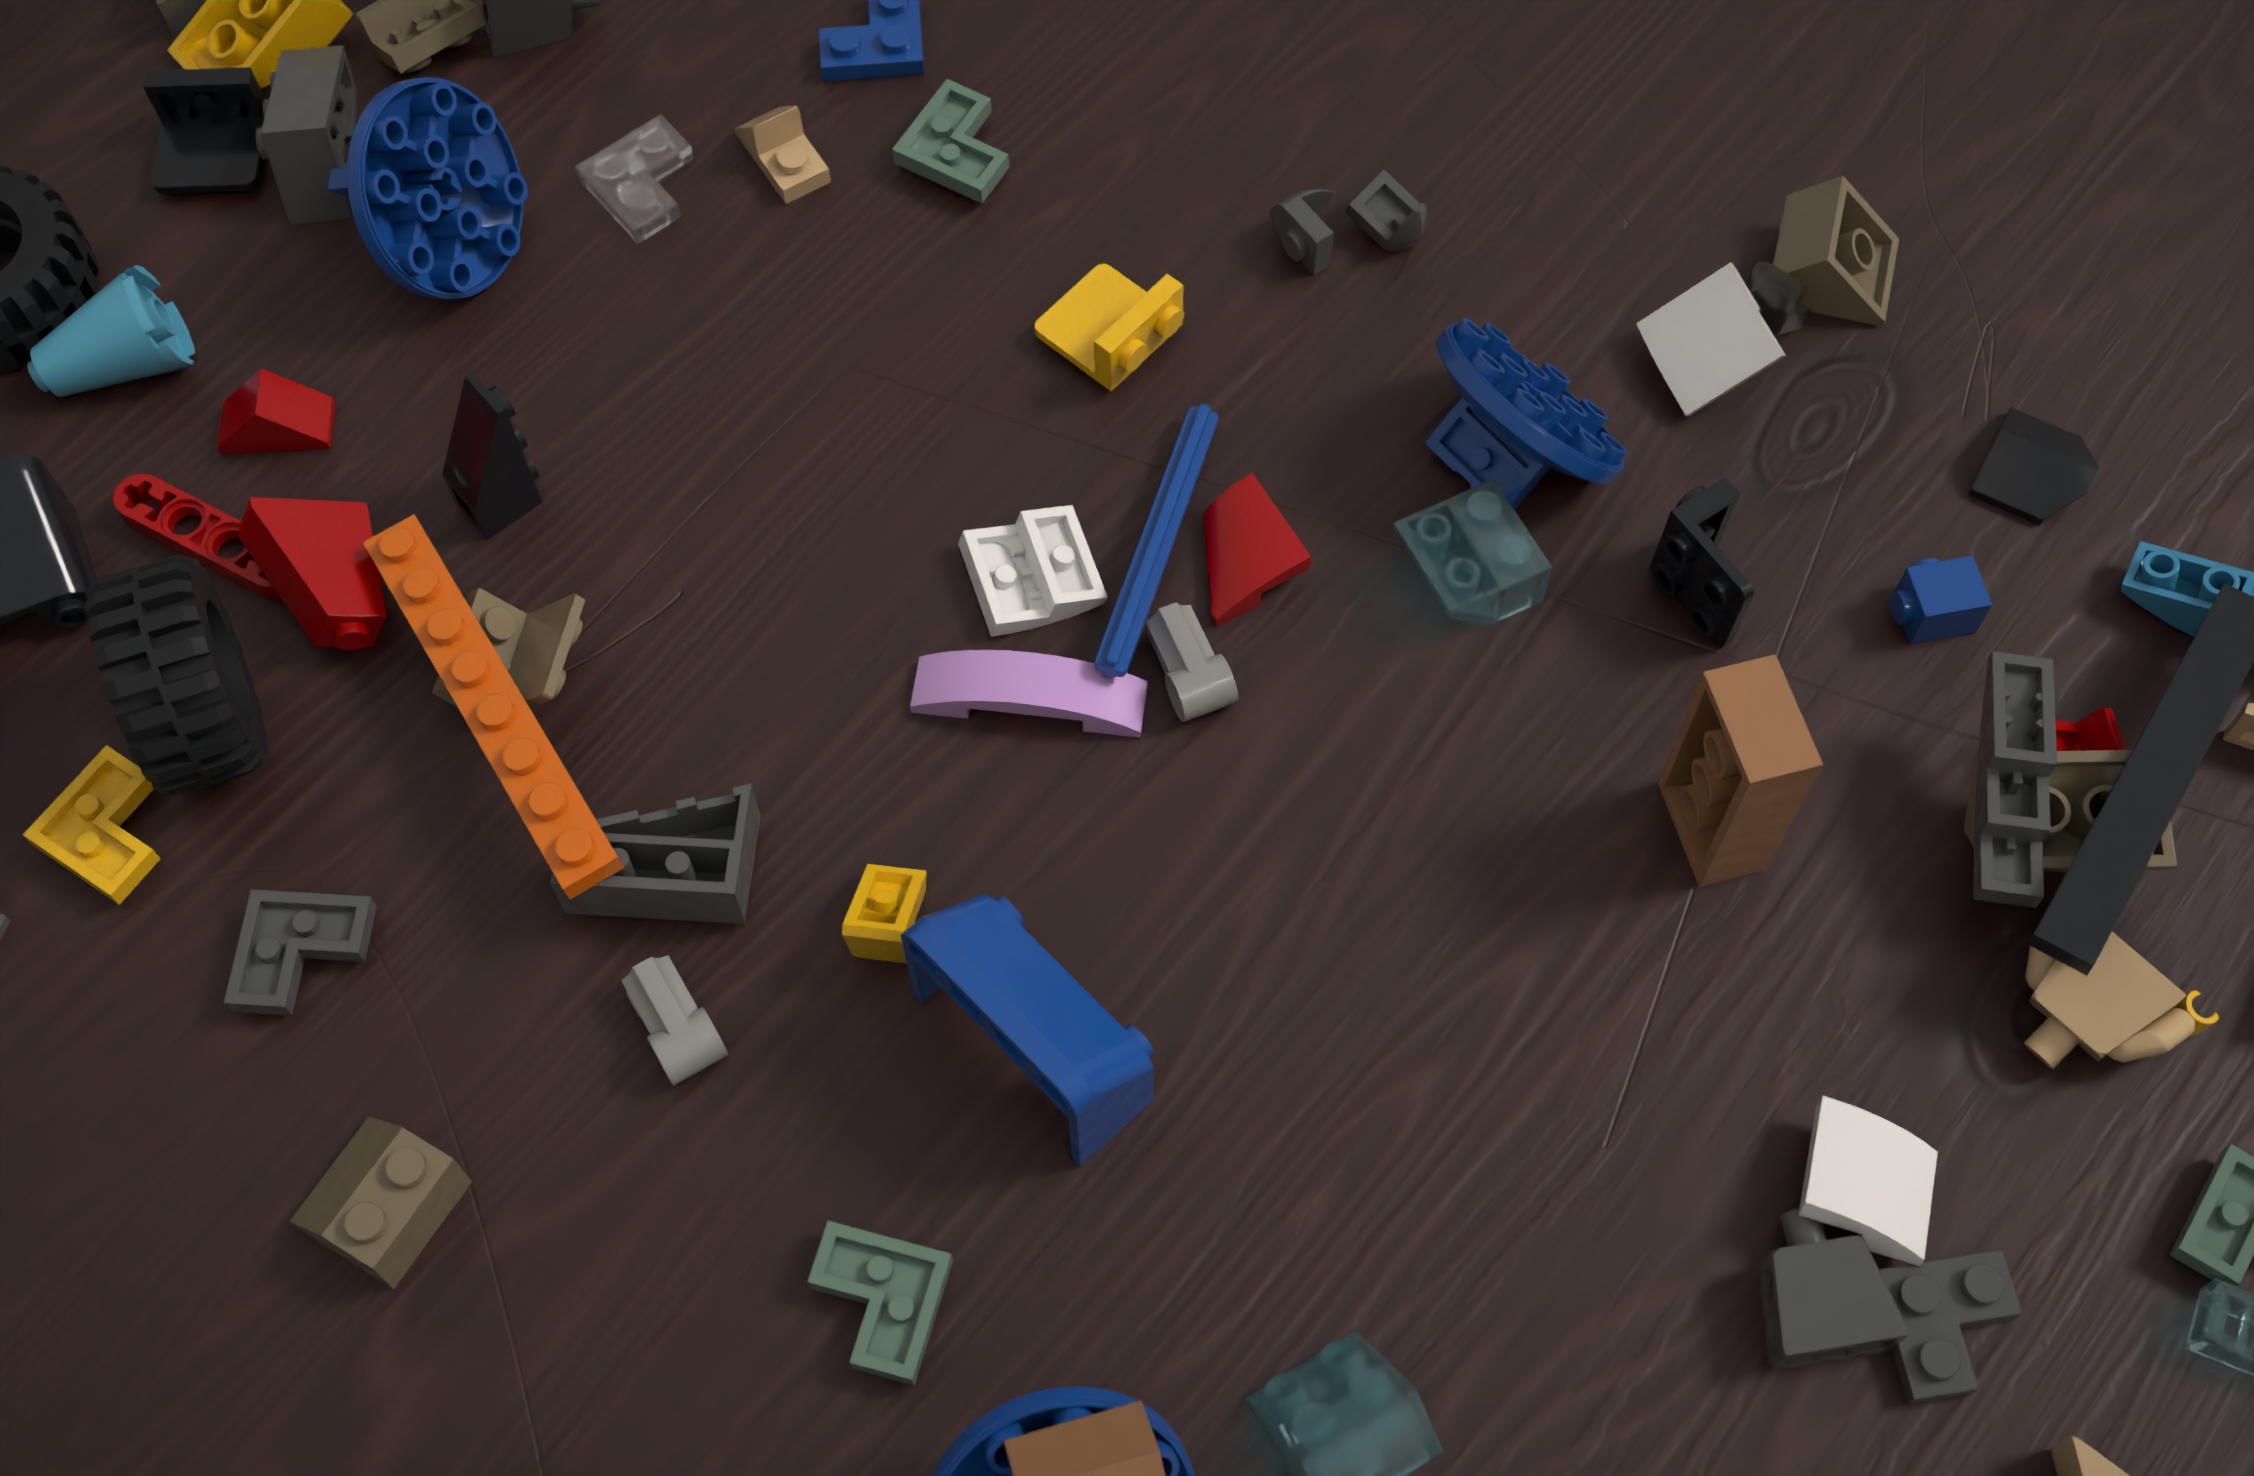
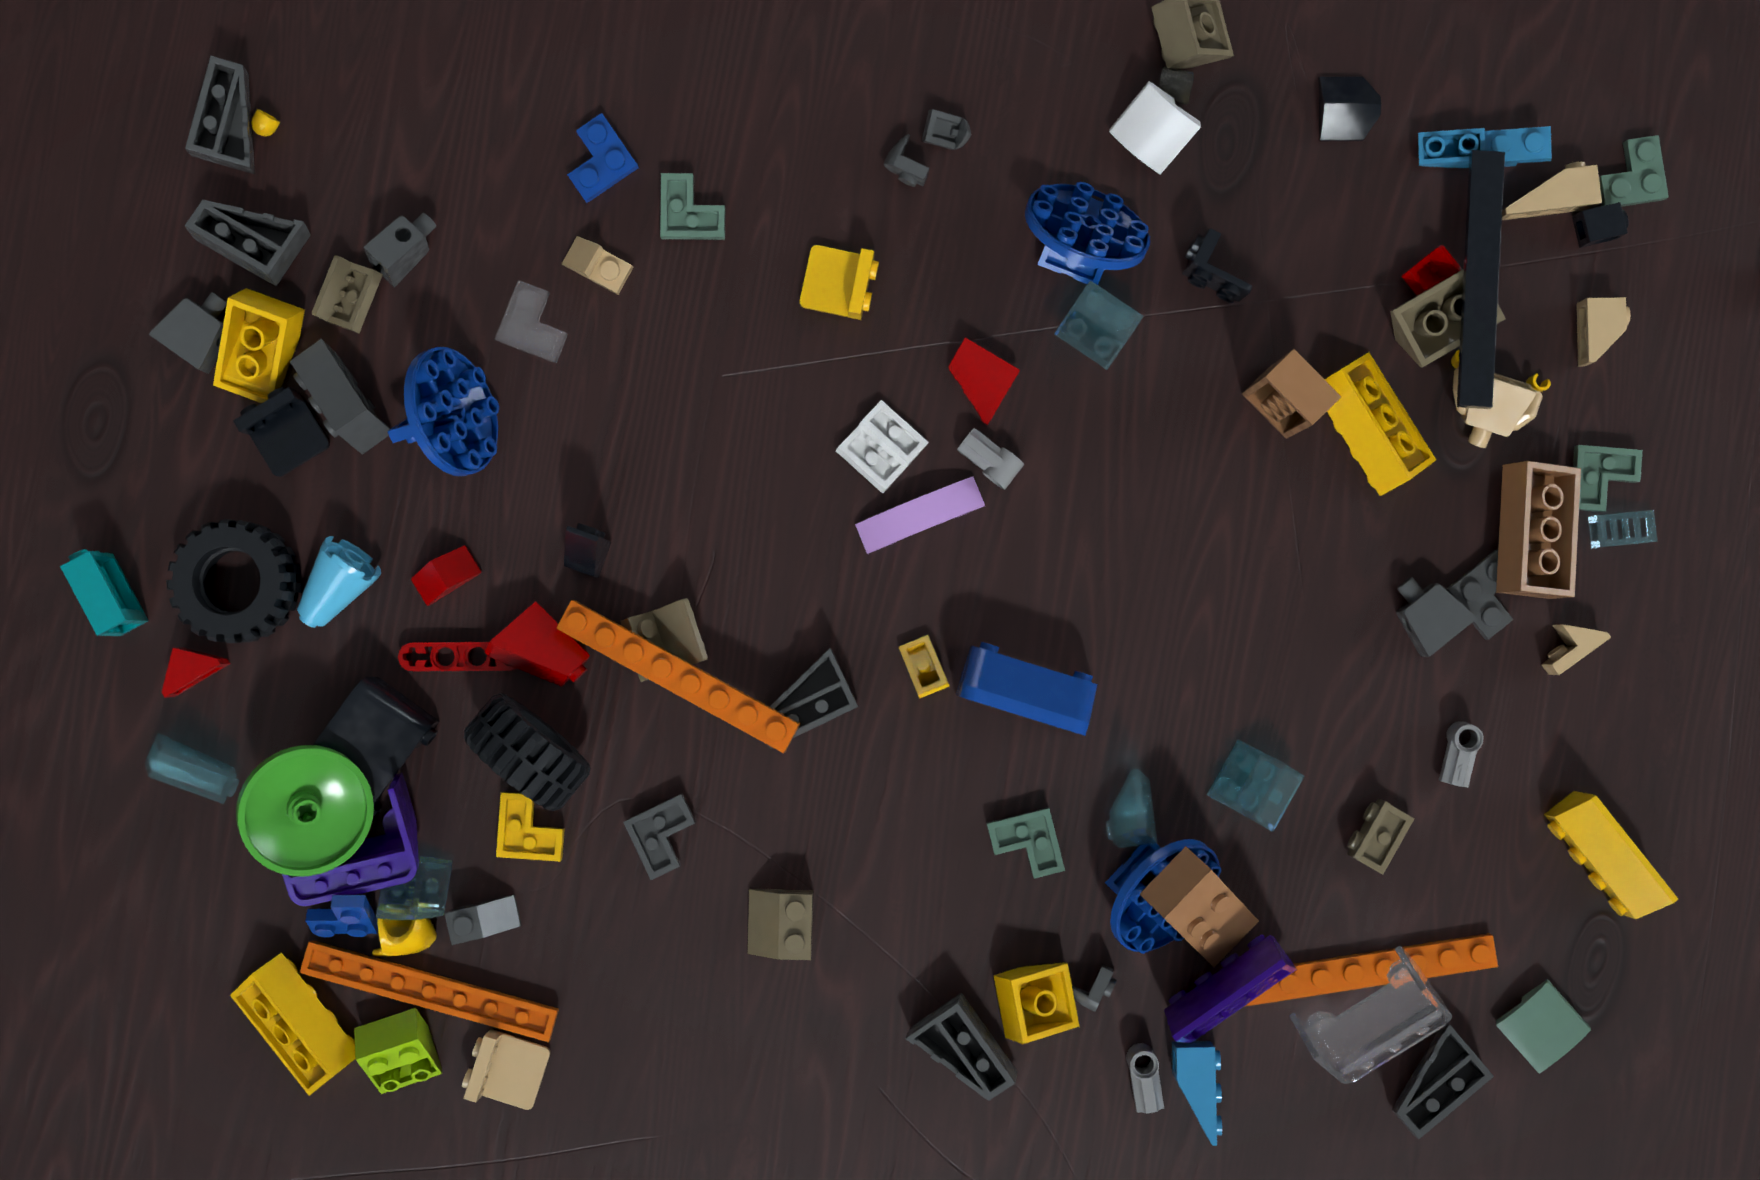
camera: 30 degrees left, 25 degrees up
(678, 1030) = (865, 775): light grey piece -> none
(1097, 1327) = (1132, 813): none -> clear light blue slope
(1156, 543) = (937, 398): blue axle -> none
(1864, 929) = (1377, 426): none -> yellow slope
(1869, 1180) = (1428, 550): white slope -> none
(1940, 599) = (1333, 220): blue brick -> none
(2013, 779) = (1415, 319): dark grey slope -> none
(2093, 1244) = (1538, 530): none -> medium nougat brick

